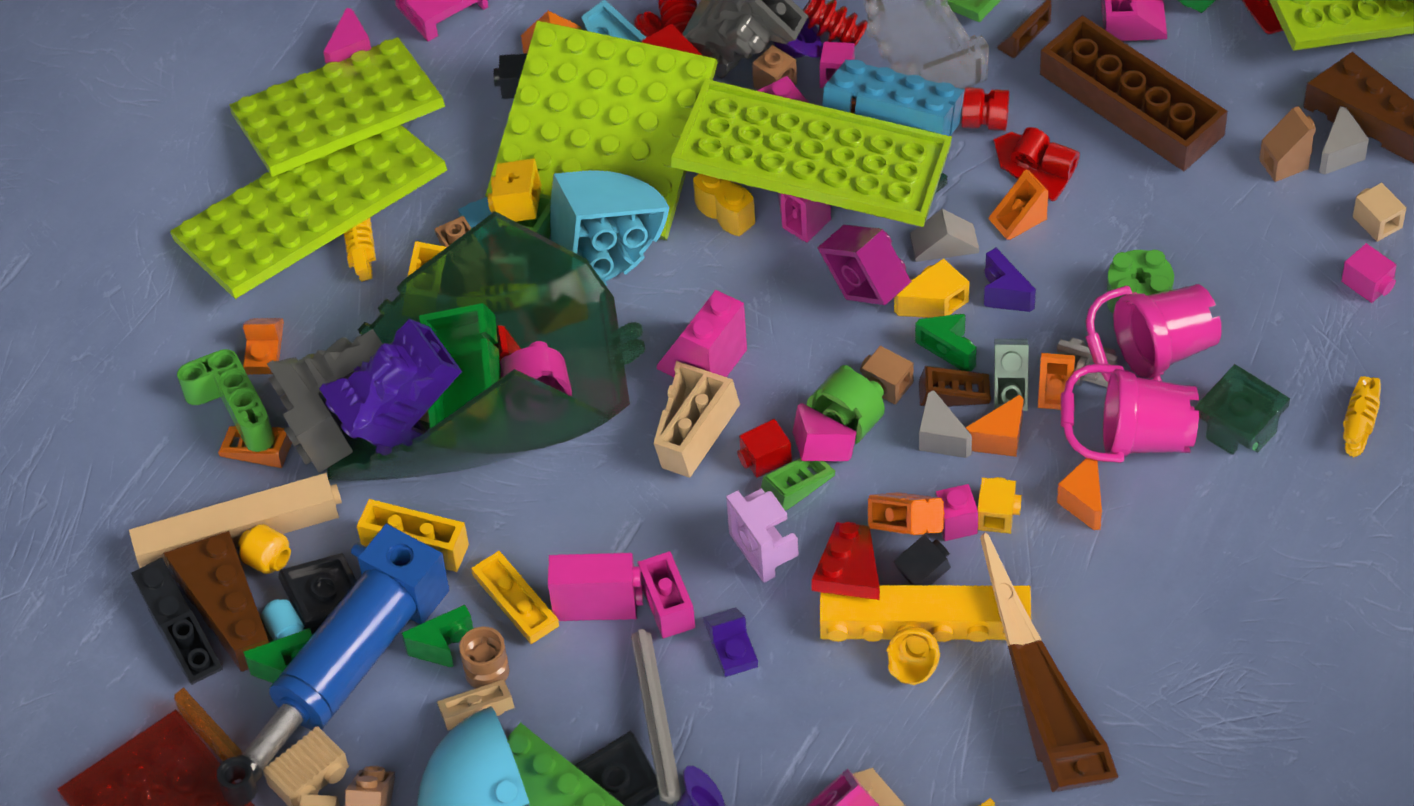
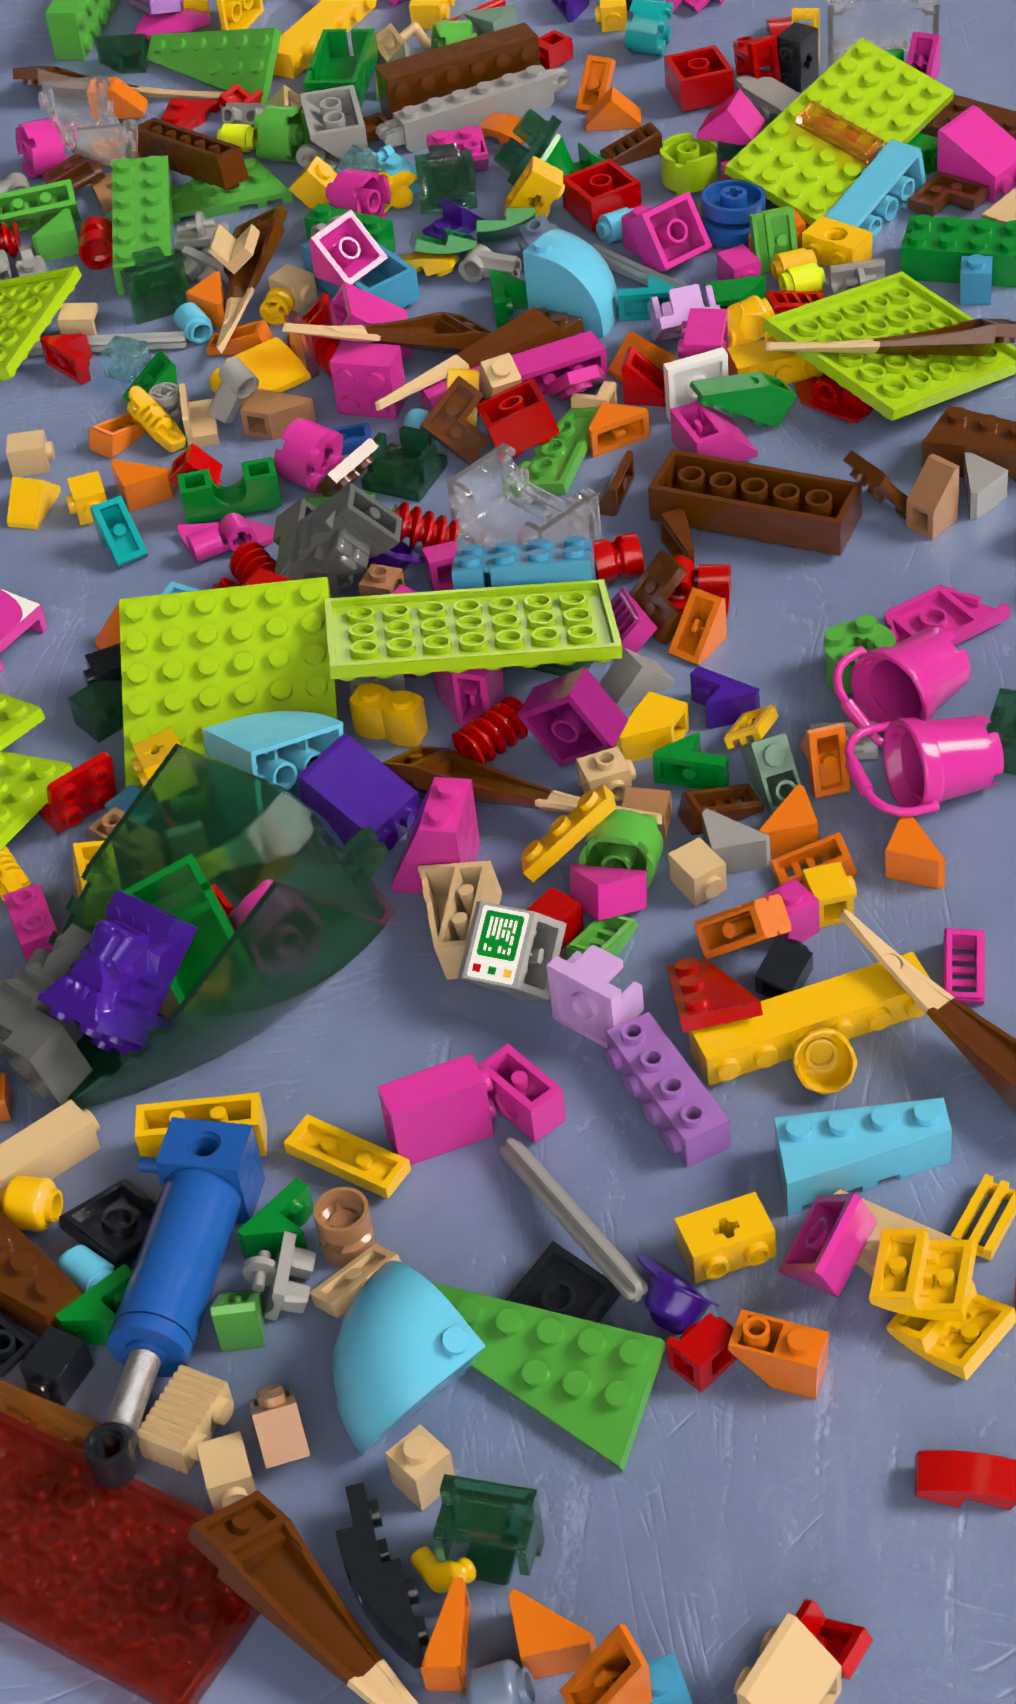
camera: 20 degrees left, 10 degrees down
(231, 691) = (56, 1365): none -> black brick
(359, 299) = (30, 919): none -> dark pink brick
(378, 701) = (239, 1320): none -> bright green slope
(418, 695) = (282, 1293): none -> light grey hips
(444, 191) = (79, 793): none -> red bracket
(493, 108) = (98, 709): none -> clear green slope
(659, 277) = (357, 792): none -> dark purple slope
(710, 468) = (511, 950): none -> slope
(731, 641) = (613, 1119): dark purple slope -> none
(750, 279) = (489, 785): none -> reddish brown plate
(750, 764) = (725, 1237): none -> yellow brick
(782, 632) = (667, 1089): none -> medium lavender brick
(796, 249) = (491, 731): none -> red piece
(809, 373) = (567, 832): none -> yellow plate
(870, 327) = (606, 768): none -> tan brick
(900, 740) = (859, 1147): none -> medium azure wedge
(902, 444) = (697, 871): none -> tan brick
(965, 183) = (631, 621): none -> dark pink slope
(993, 161) = (653, 592): none -> reddish brown plate
(1013, 322) = (746, 728): none -> yellow tile
(1016, 460) = (823, 850): none -> orange slope
(1052, 102) = (677, 534): none -> reddish brown slope
(1080, 586) = (964, 940): none -> dark pink slope
(1232, 270) = (944, 608): none -> dark pink wing
(1246, 110) = (878, 482): none -> reddish brown plate

